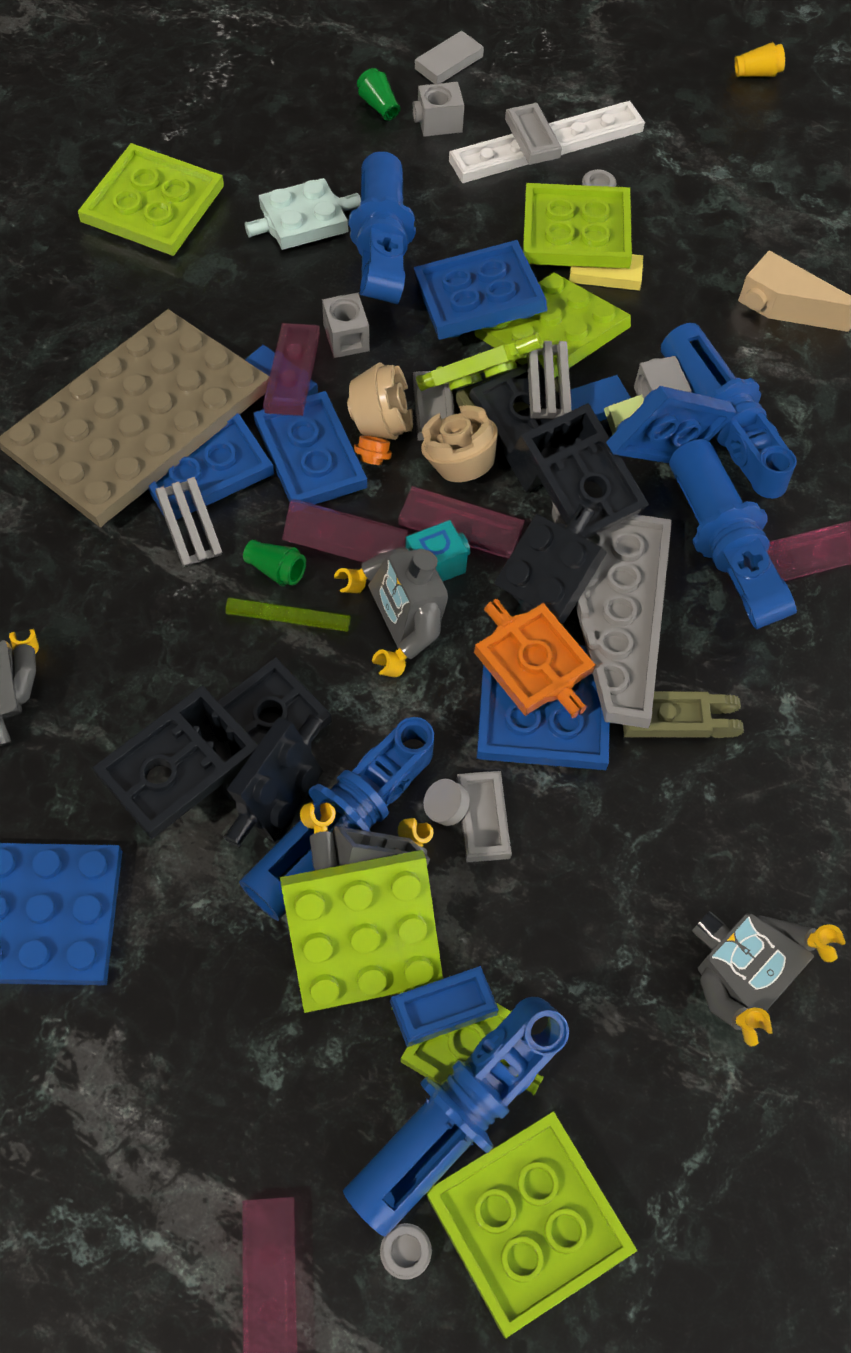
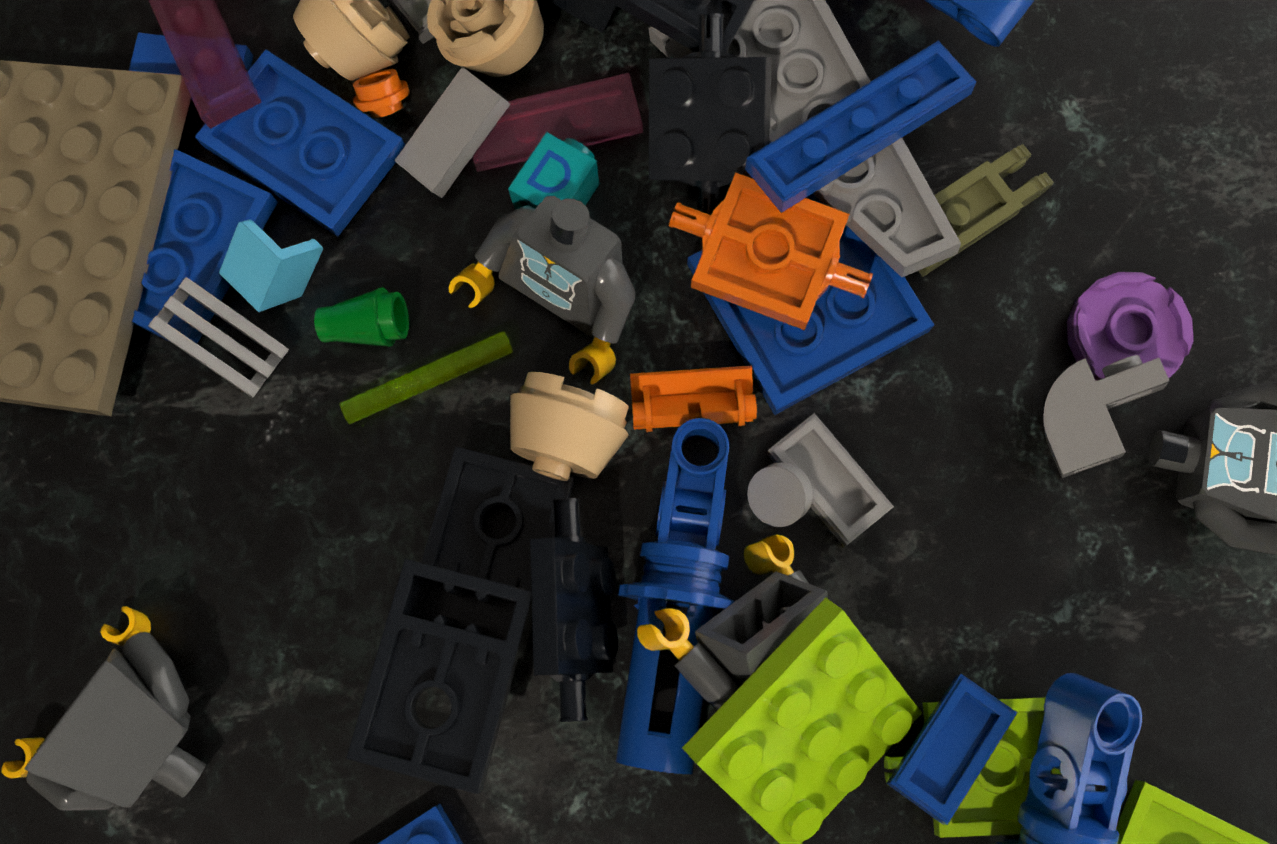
camera: 25 degrees left, 15 degrees up
(241, 503) = (264, 270): none -> medium azure panel
(339, 532) = (419, 230): clear pink tile -> none
(345, 681) = (565, 427): none -> tan cone
(398, 492) = (452, 132): none -> light grey tile
(449, 722) = (684, 395): none -> orange hinge
(636, 620) = (859, 126): none -> blue tile
(665, 864) = (1078, 407): none -> light grey brick
(735, 848) = (1127, 318): none -> medium lavender tile

